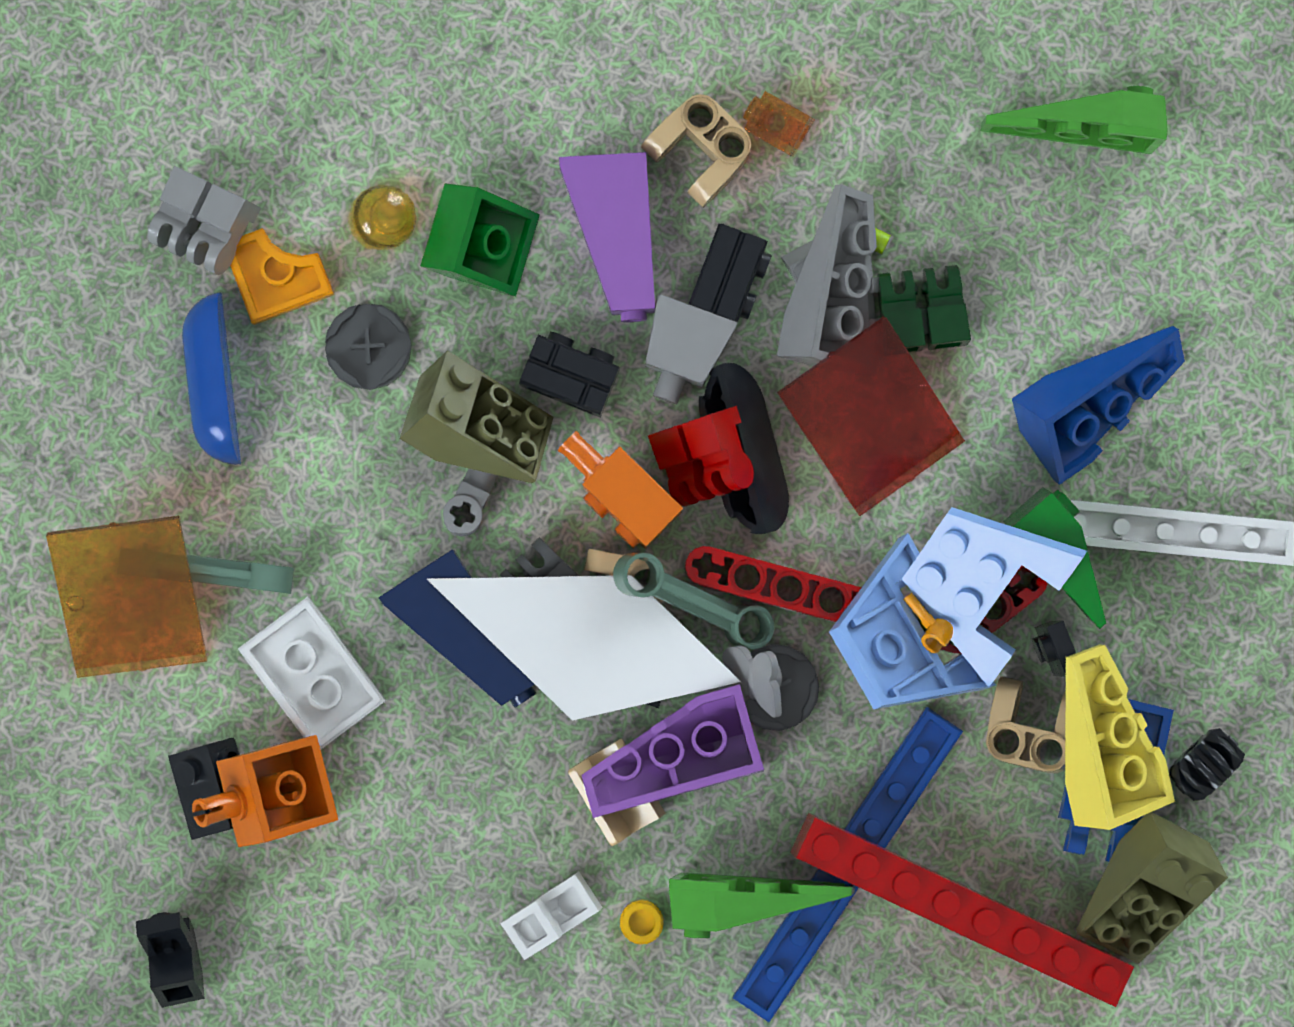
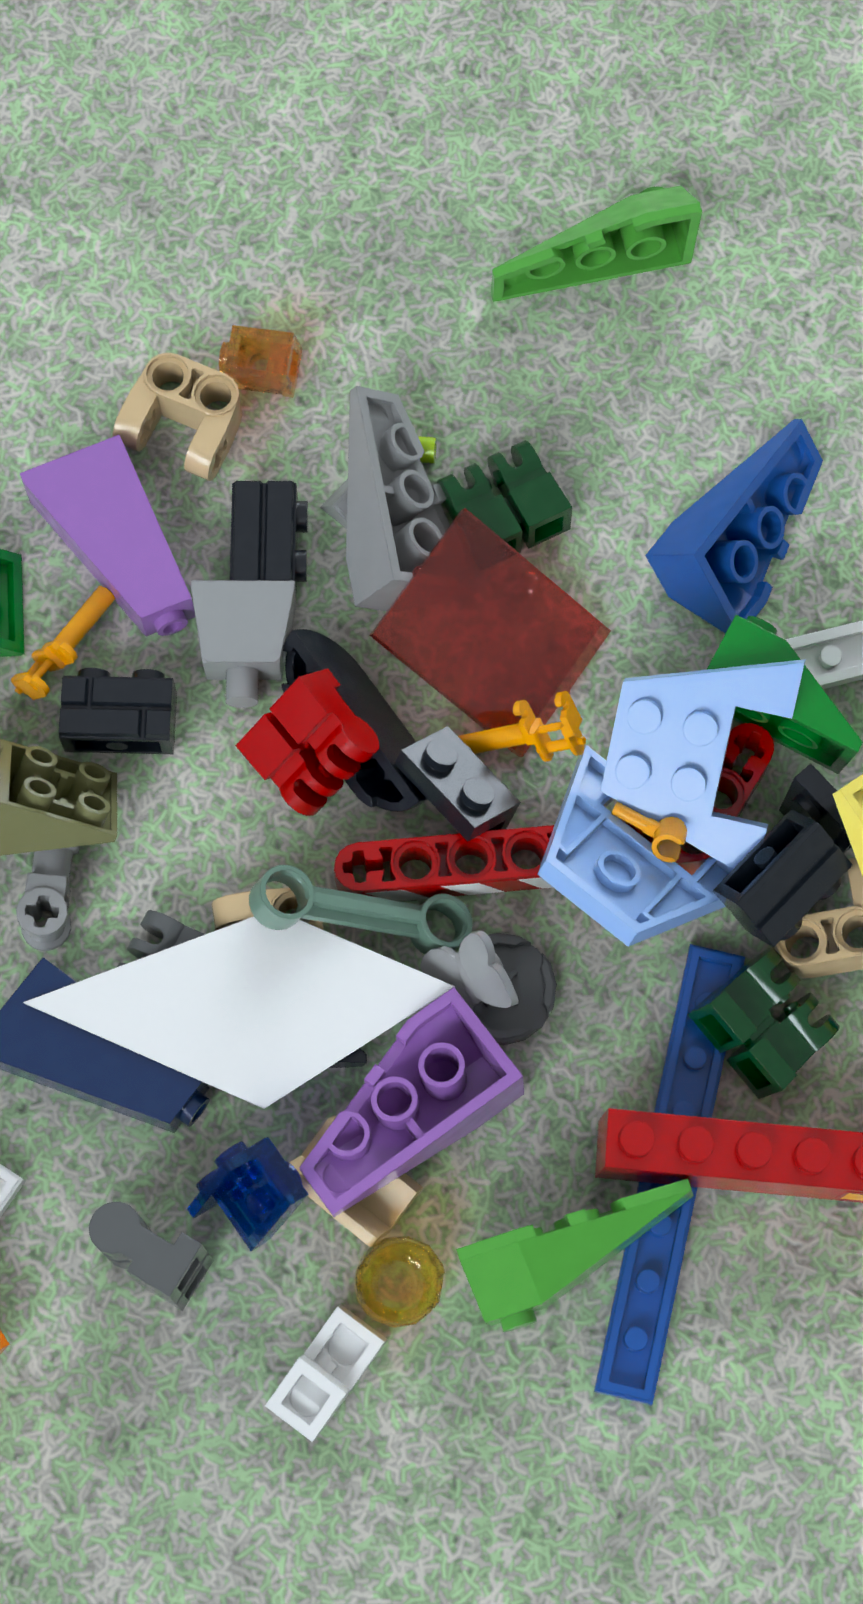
camera: 20 degrees left, 15 degrees down
(460, 804) = (153, 1262): none -> dark grey legs
(541, 309) = (61, 651): none -> light orange piece
(544, 776) = (252, 1189): none -> clear blue bracket
(622, 490) = (231, 814): orange brick -> none
(623, 874) = (399, 1281): none -> clear yellow hair
(641, 921) = (444, 1338): yellow tile -> none
(801, 529) = (458, 784): none -> bracket
(869, 507) = (533, 731): none -> light orange piece
(945, 804) = (770, 1047): none -> dark green legs
(1008, 696) = (783, 878): none -> black brick

